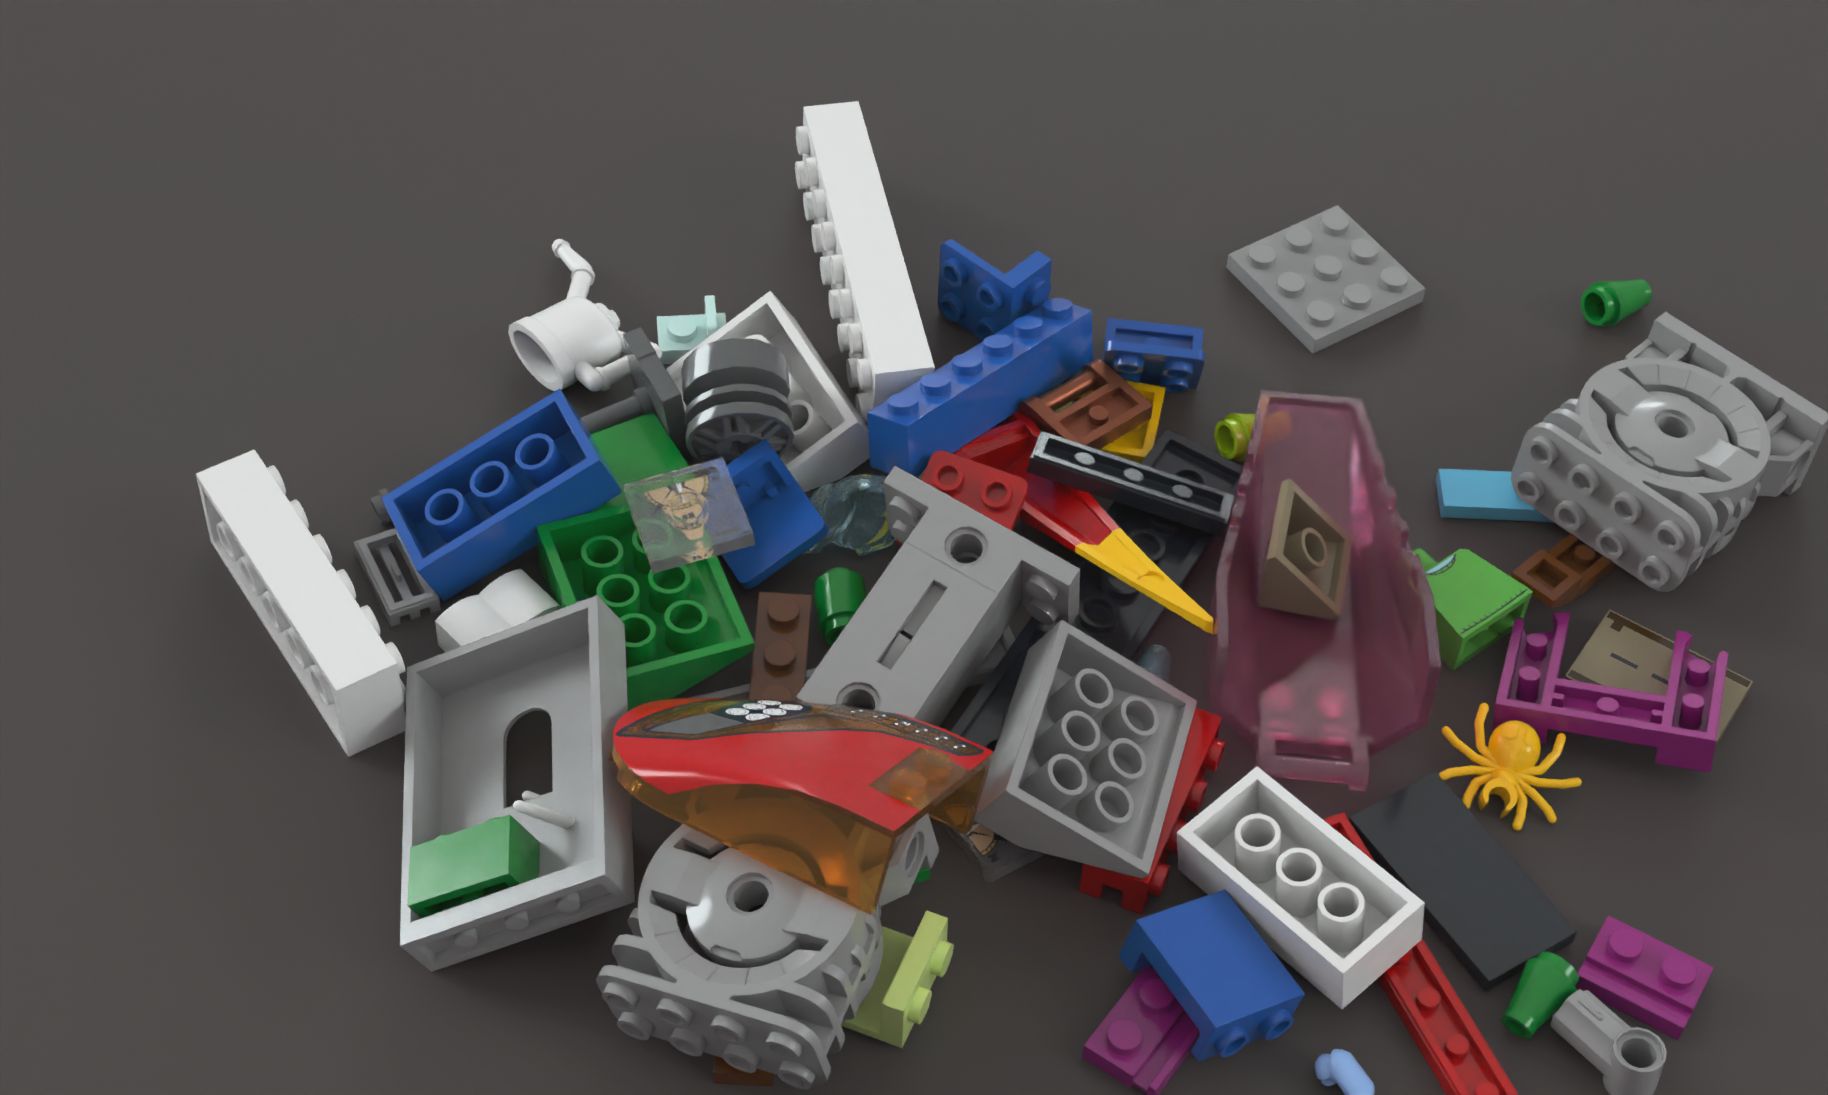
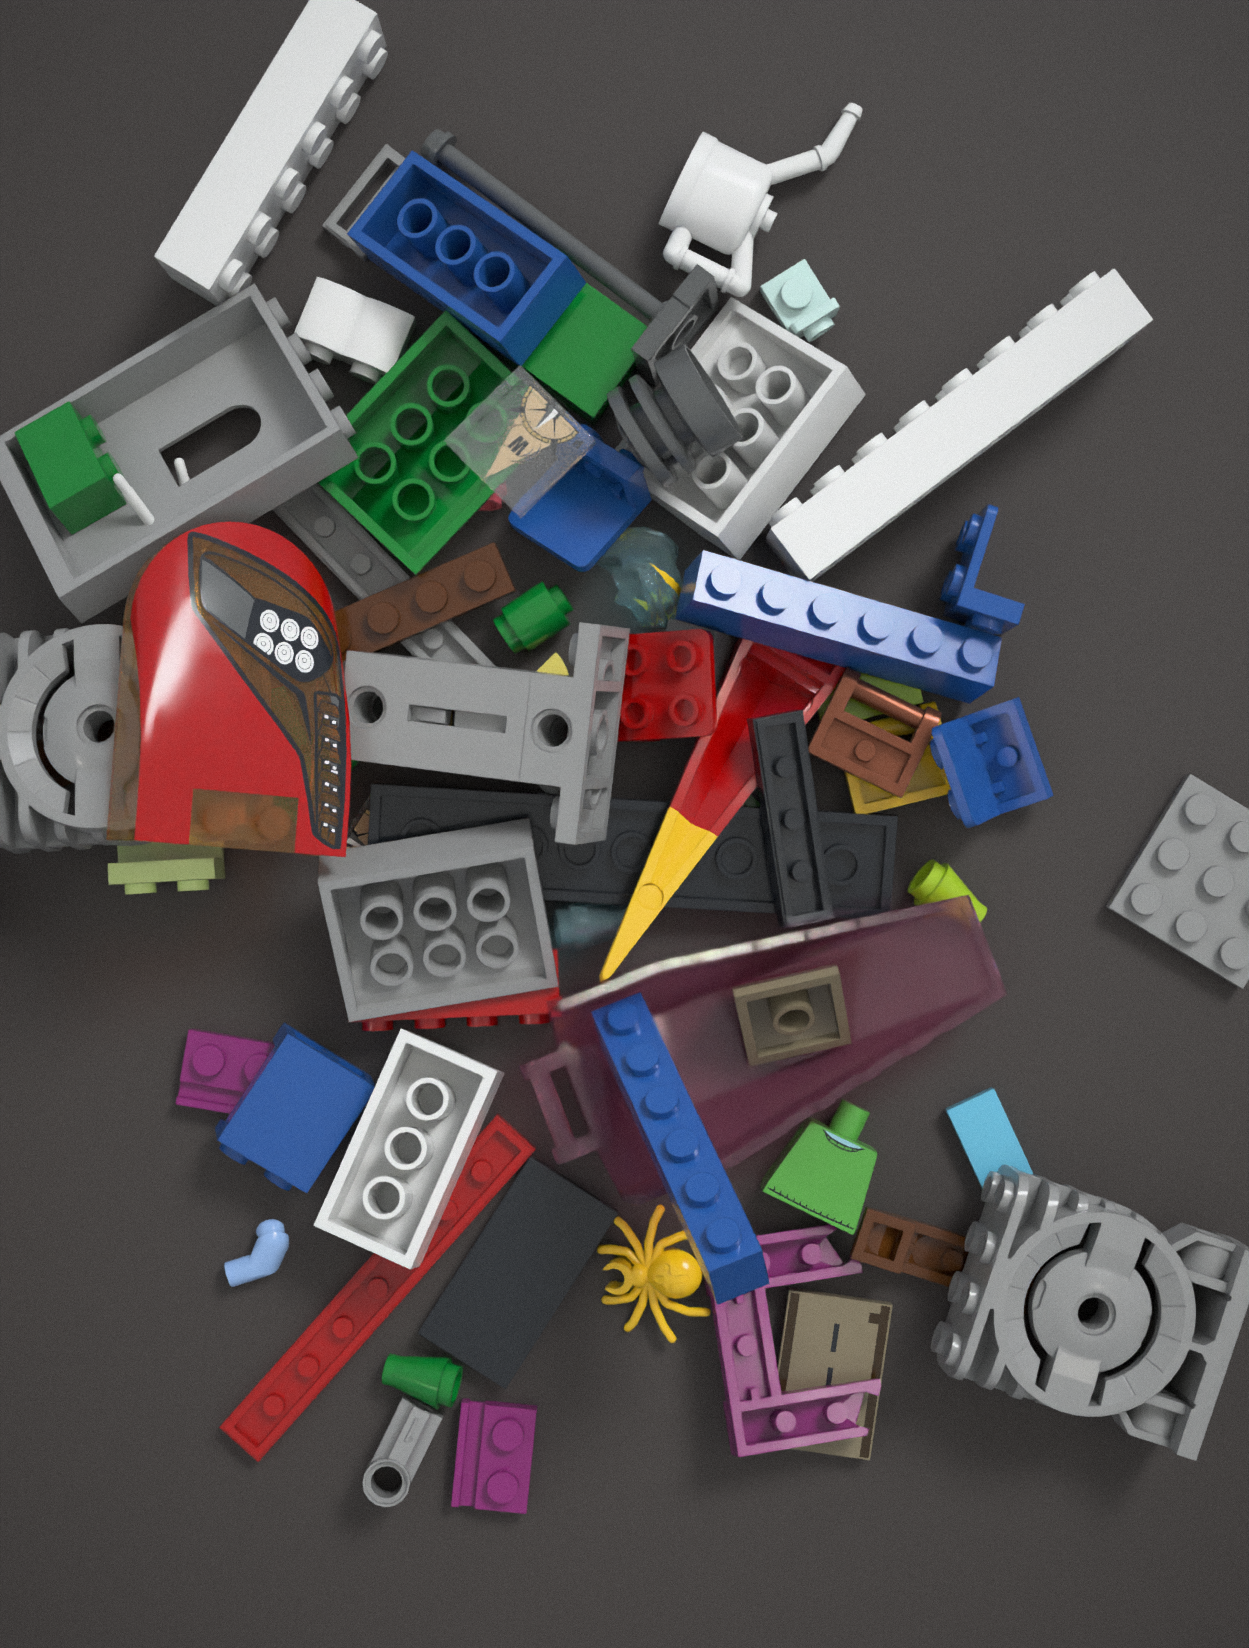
camera: 65 degrees right, 40 degrees up
(1399, 605) = (681, 1149): none -> blue brick

